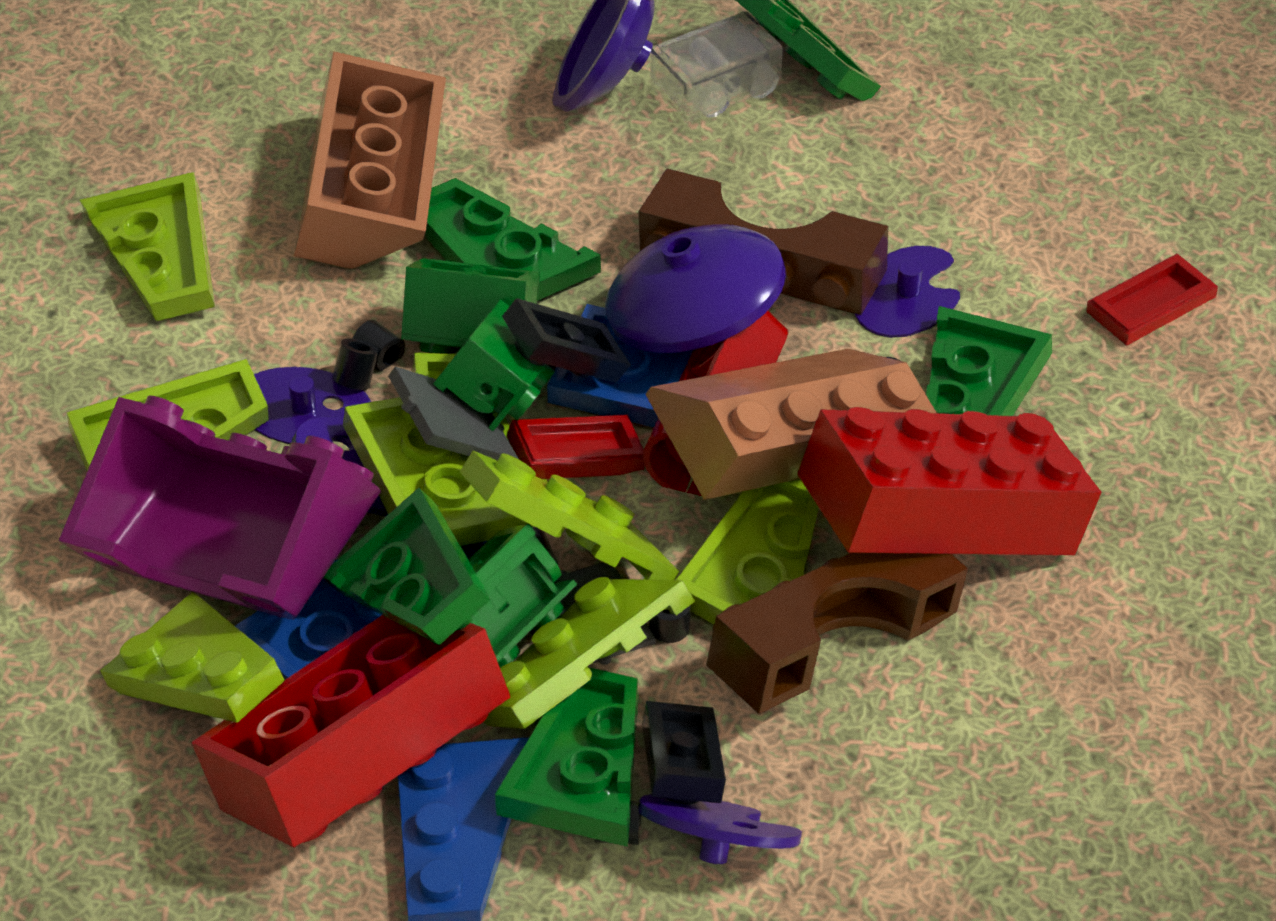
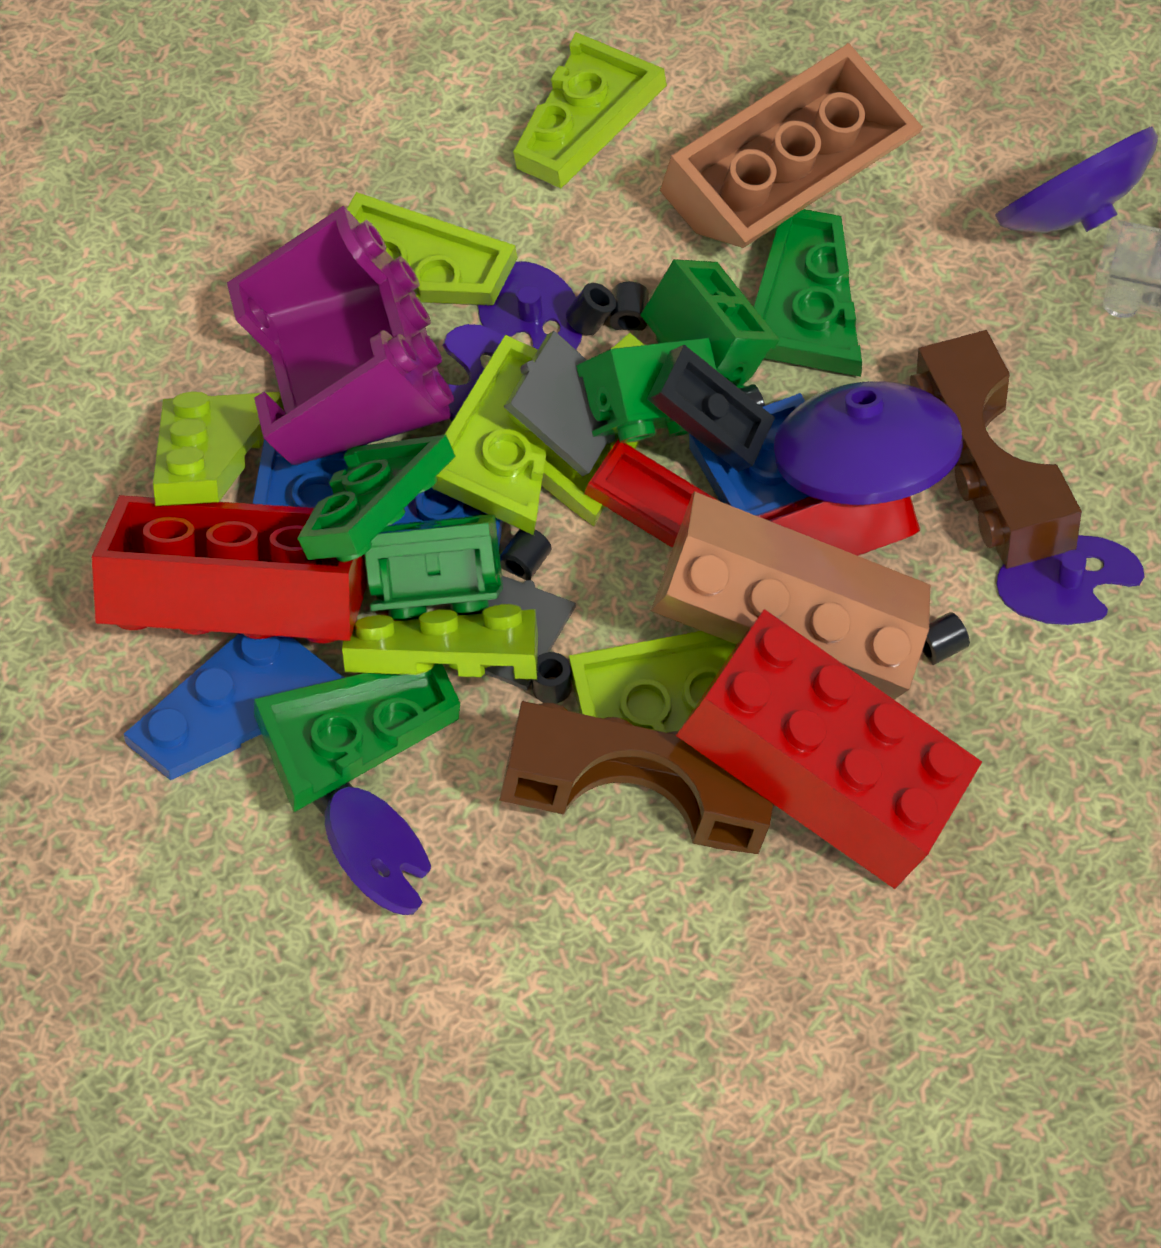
camera: 50 degrees right, 10 degrees up
(560, 504) = (556, 552): lime wing -> none
(683, 753) = (417, 781): black plate -> none
(983, 364) = (1014, 694): green wing -> none

